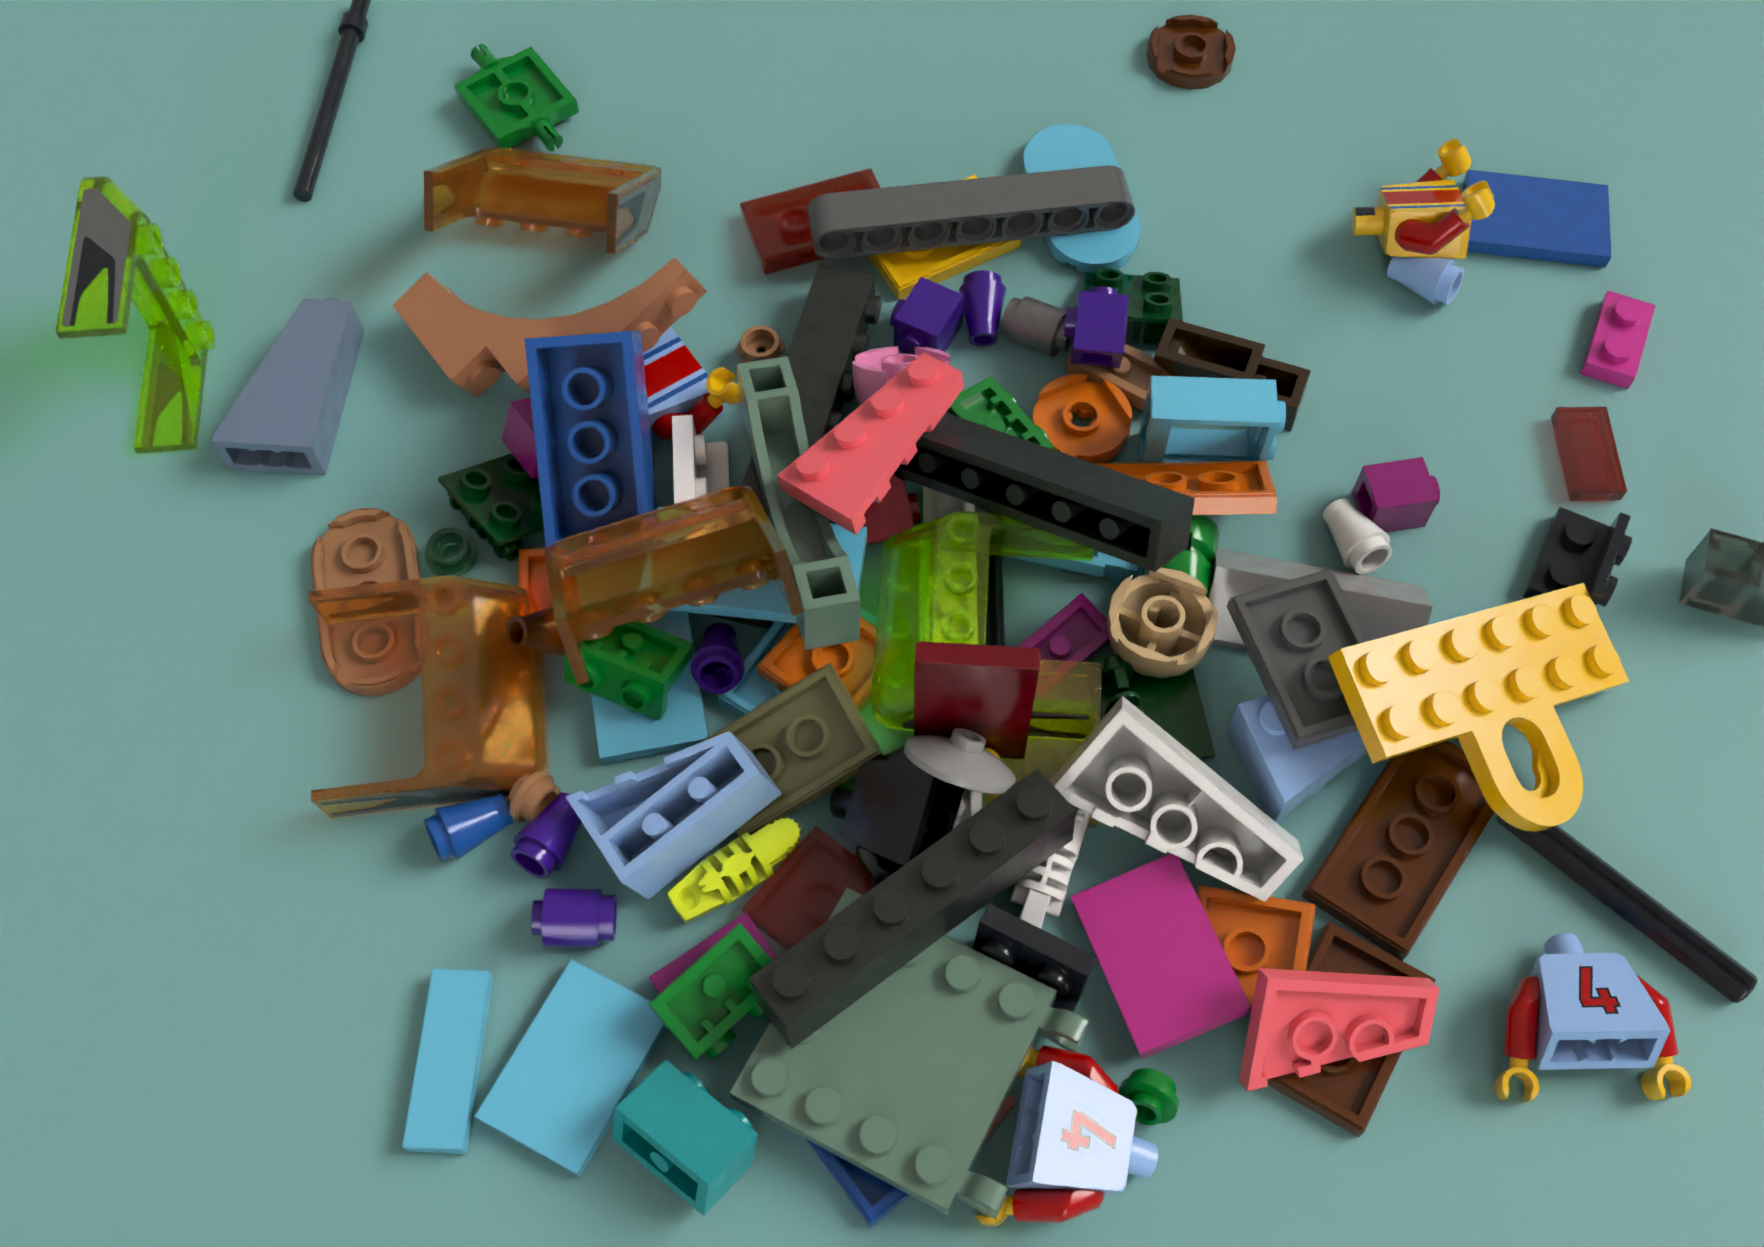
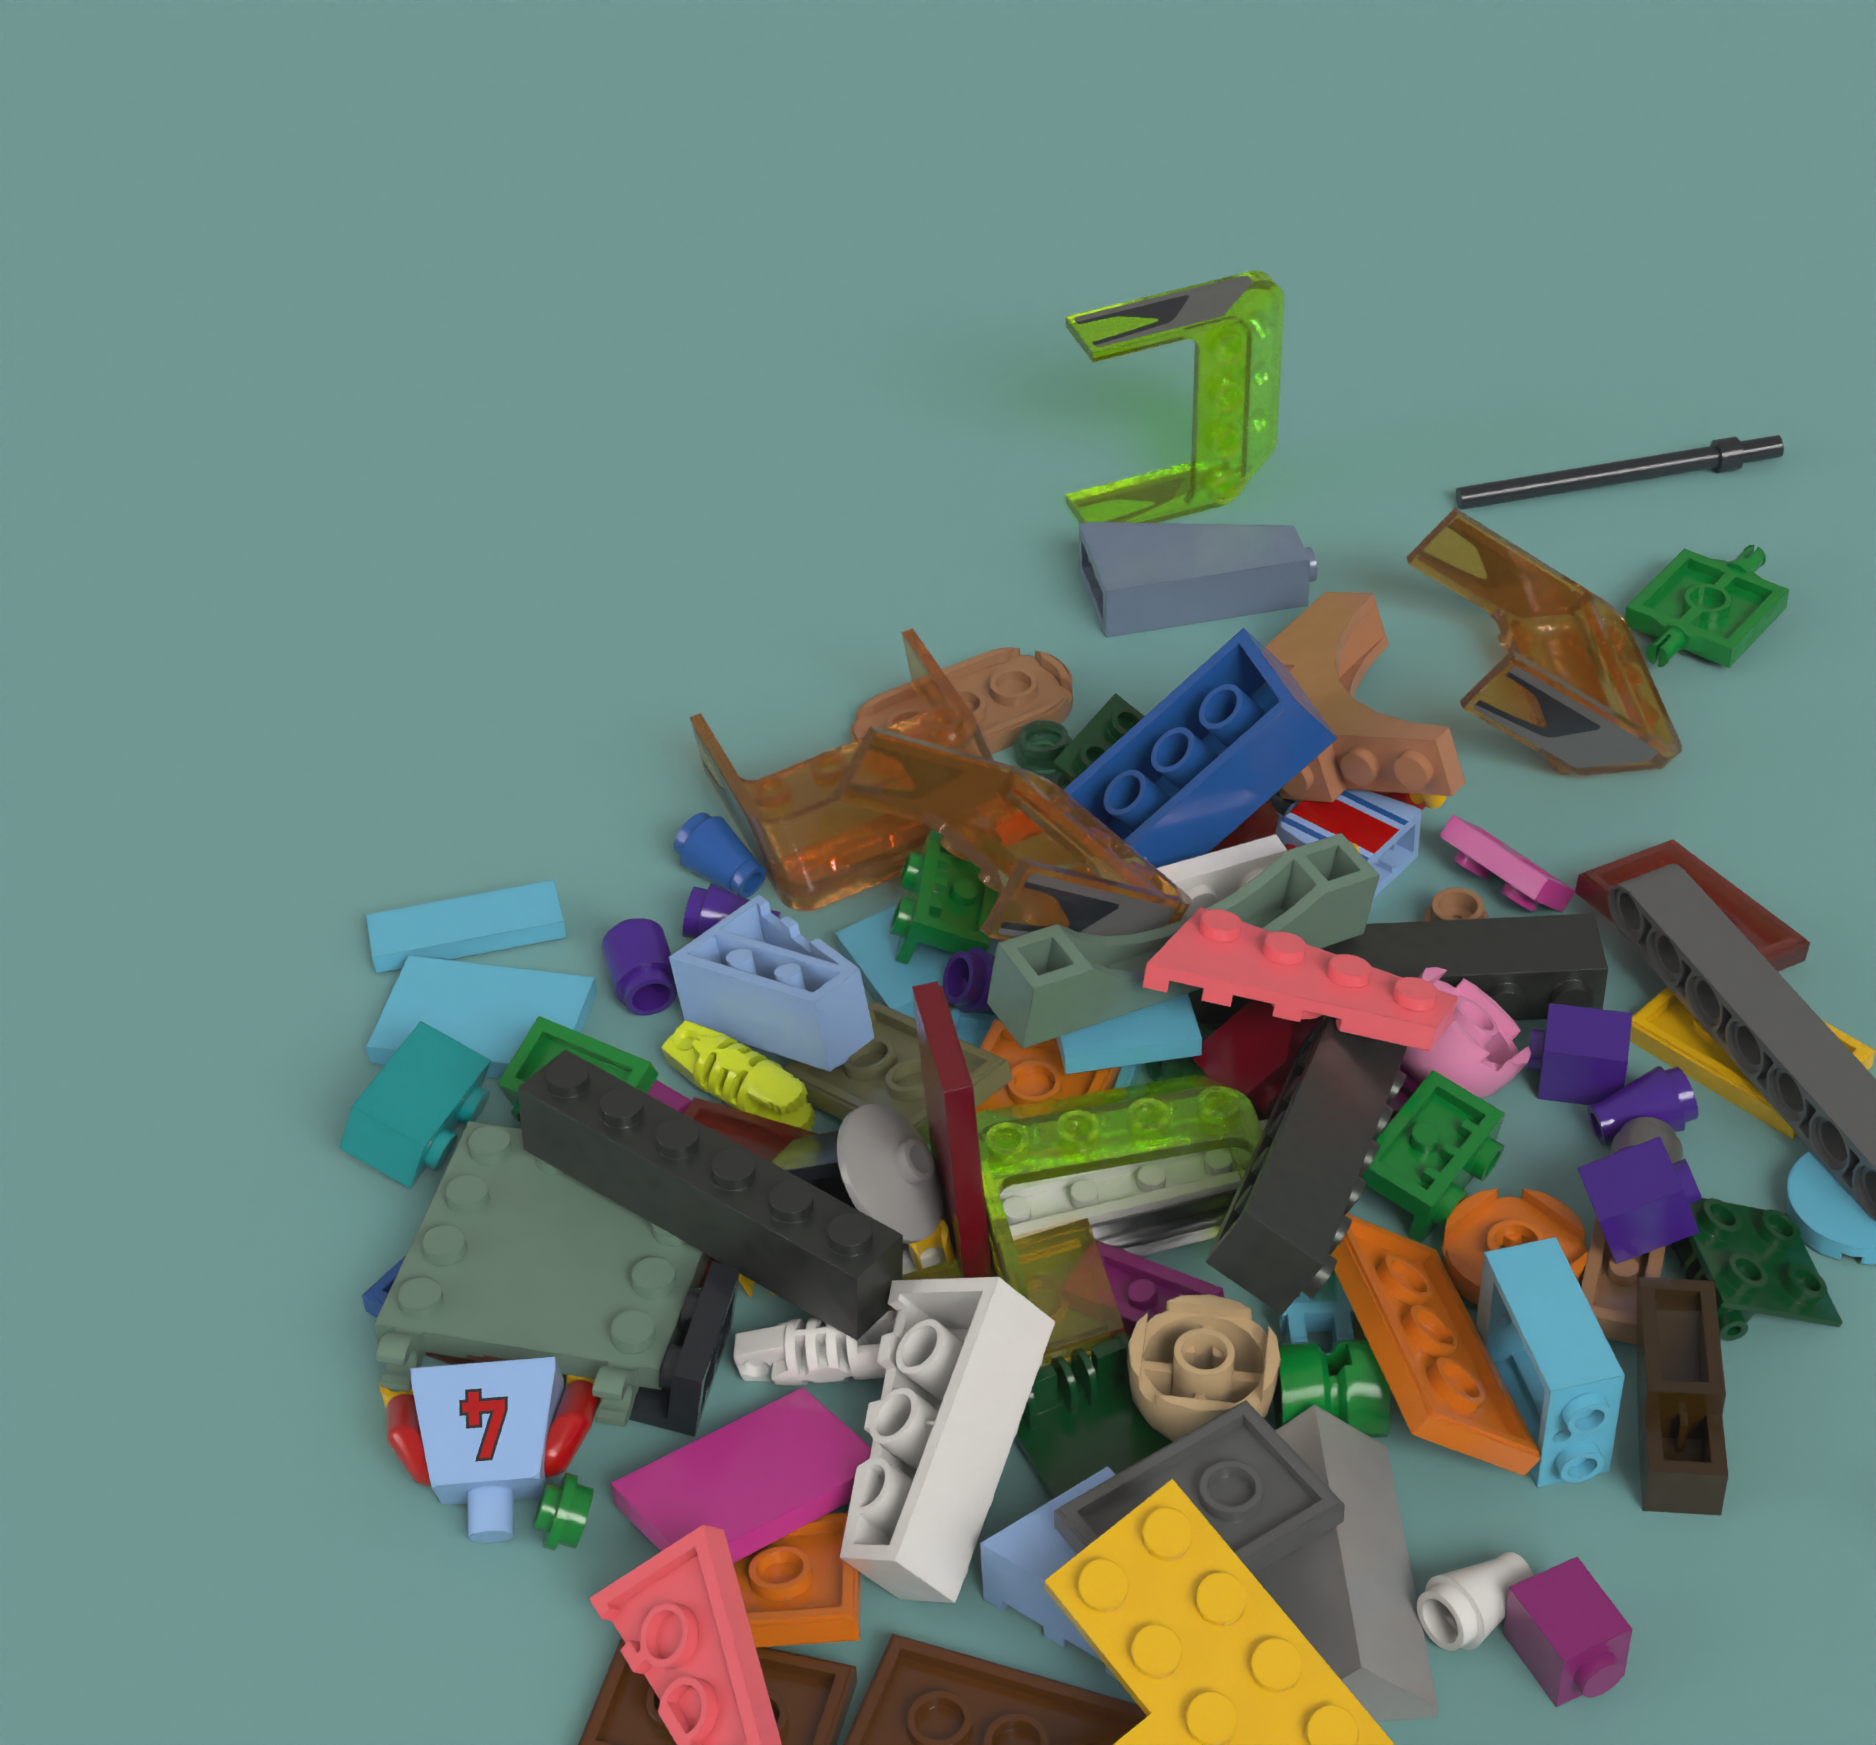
camera: 75 degrees right, 20 degrees down
(532, 795) = (772, 885): medium nougat plate -> none
(747, 296) = (1524, 879): none -> dark pink plate

